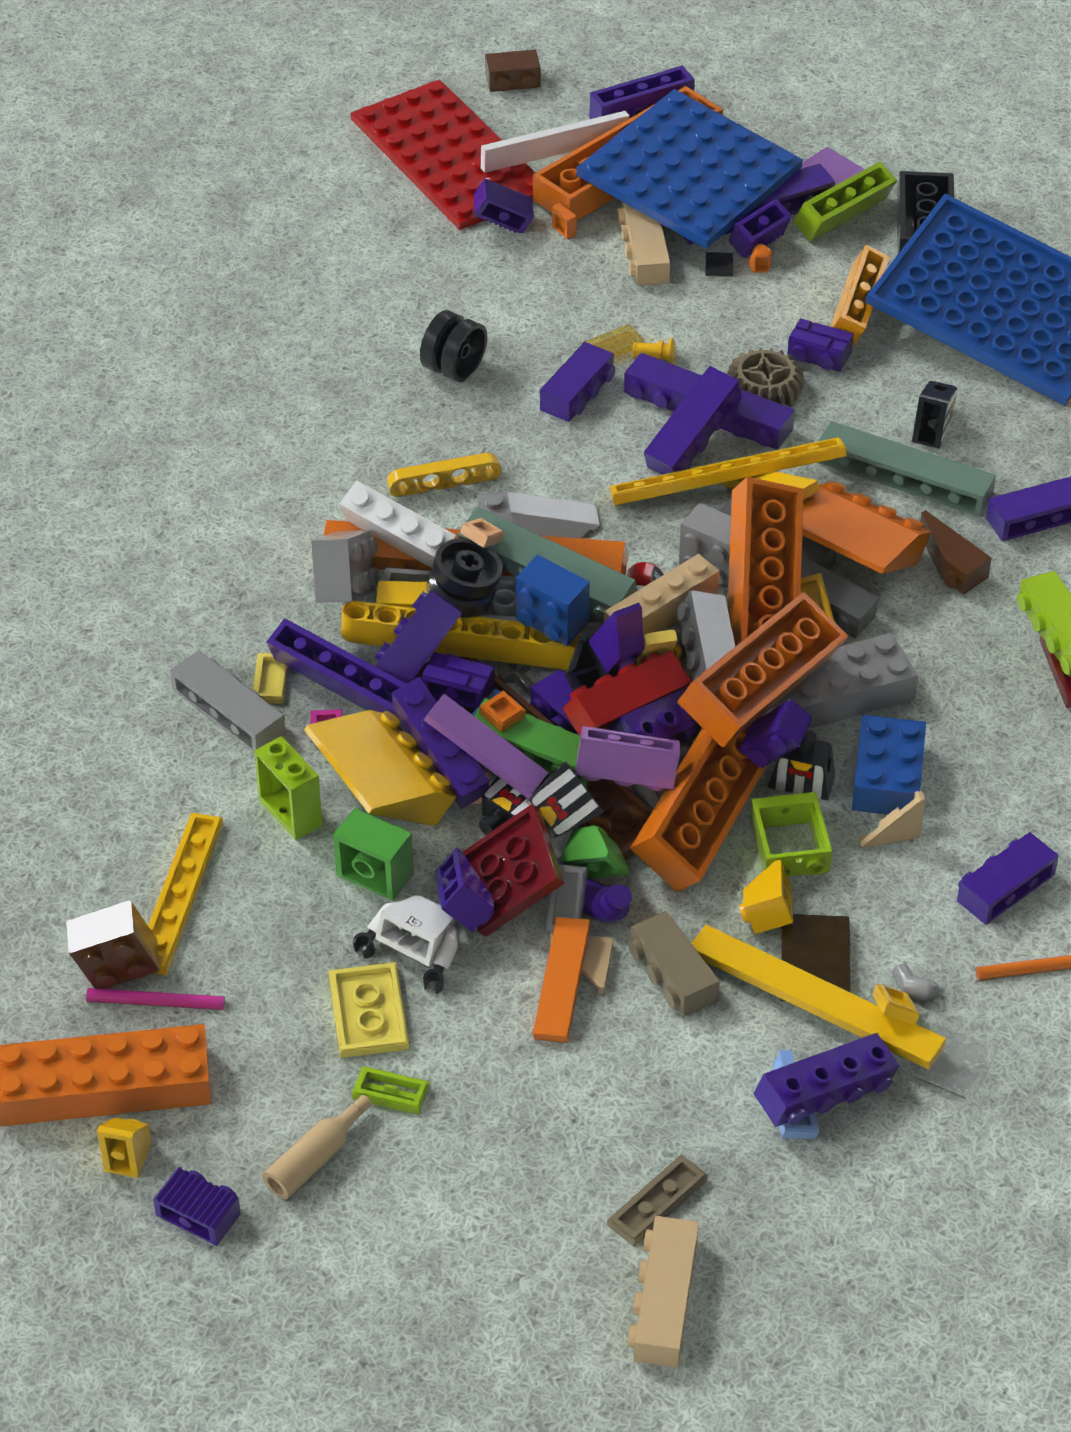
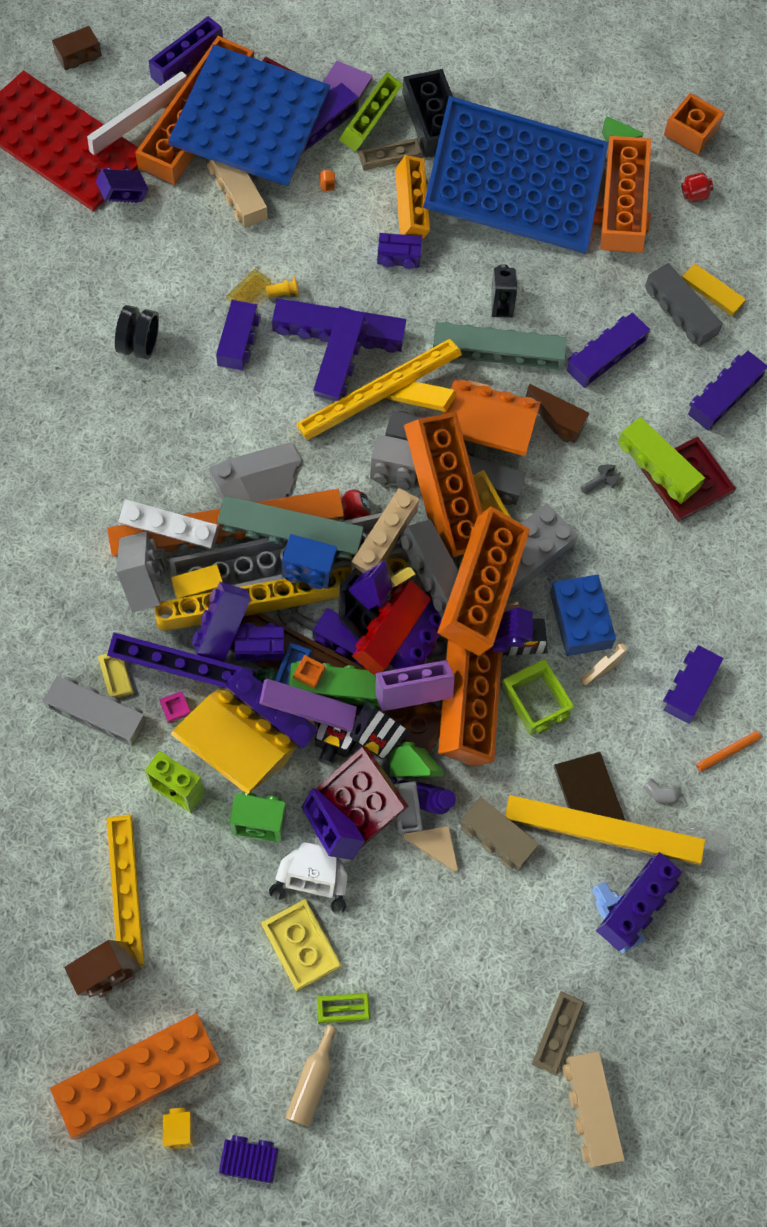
camera: 25 degrees left, 20 degrees up
(155, 998) = (145, 989): dark pink bar -> none
(444, 471) = (172, 450): yellow beam -> none
(465, 575) = (236, 559): black wheel -> none
(482, 532) = (238, 521): light nougat tile -> none
(562, 979) = (427, 874): orange tile -> none
(564, 221) = (171, 185): orange tile -> none
(719, 264) = (298, 192): black tile -> none
(760, 228) = (319, 154): dark purple brick -> none
(768, 899) = (544, 759): yellow slope -> none
(769, 375) = (376, 285): dark tan gear -> none
(847, 250) = (389, 153): none -> dark tan tile
(895, 1004) = (661, 821): yellow tile -> none
(984, 638) = (602, 479): none -> dark grey bar

